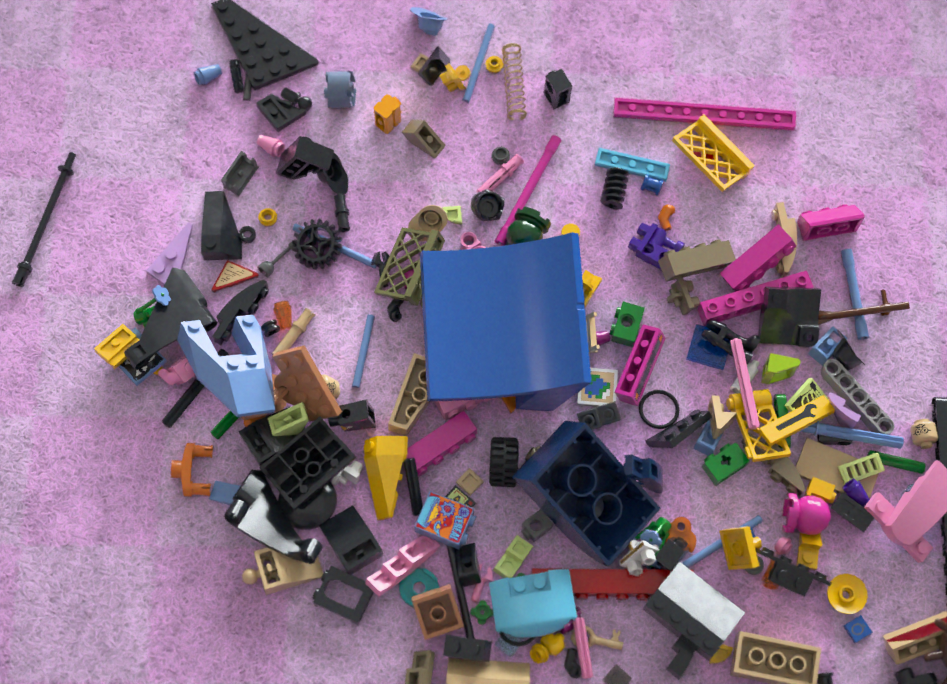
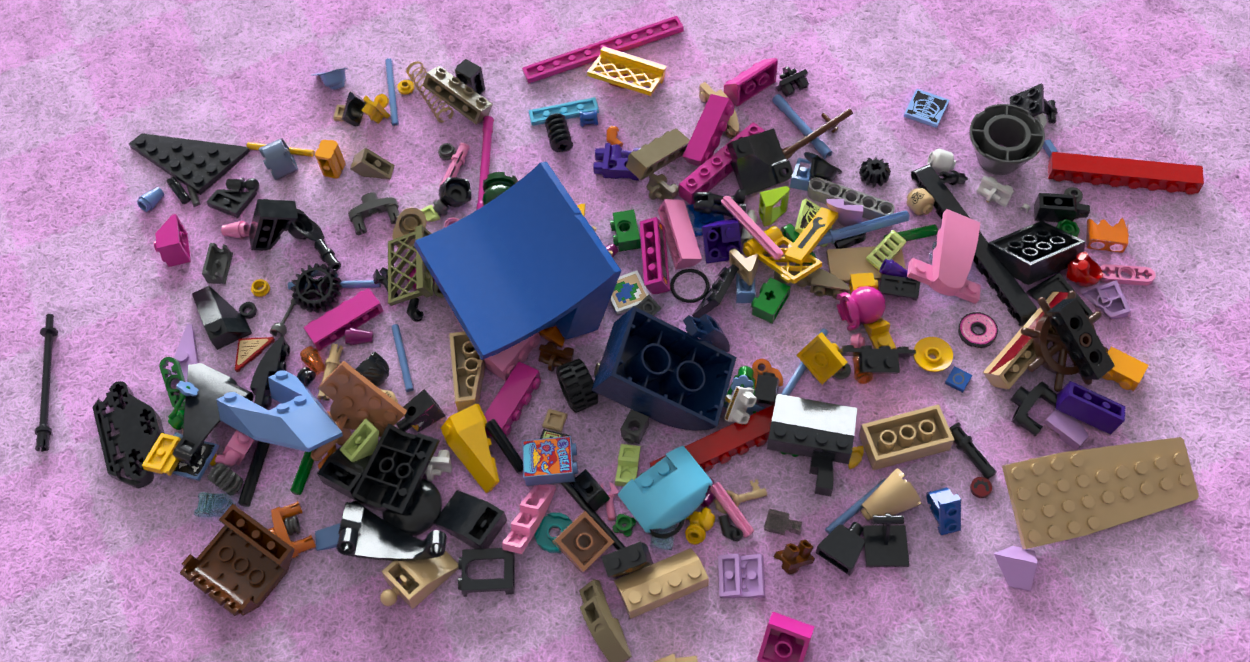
camera: 20 degrees left, 10 degrees down
(99, 310) = (134, 434): none -> black connector
(138, 412) = (211, 504): none -> clear light blue piece
(138, 480) = (239, 563): none -> reddish brown slope
(159, 265) = (176, 368): none -> green beam
(159, 395) = (225, 479): none -> dark grey gear
(198, 466) = (292, 525): none -> dark grey bush
(208, 133) = (173, 242): none -> dark pink slope
(327, 287) = (348, 314): none -> dark pink brick
(330, 353) = (374, 369): none -> black hair
(333, 310) = (358, 336): none -> magenta cone
(366, 89) = (295, 151): none -> yellow bar
(406, 180) = (372, 205): none -> dark grey connector
(467, 214) = (440, 207): none -> dark grey plate
(499, 422) = (555, 357): none -> reddish brown hips
(537, 101) = (457, 94): none -> dark tan brick
(676, 352) = (679, 233): none -> bright pink brick
(711, 378) = (720, 239): none -> dark purple slope
(880, 242) = (789, 79): none -> black hips
(899, 386) = (874, 171): none -> black gear
(912, 581) = (980, 320): none -> tile

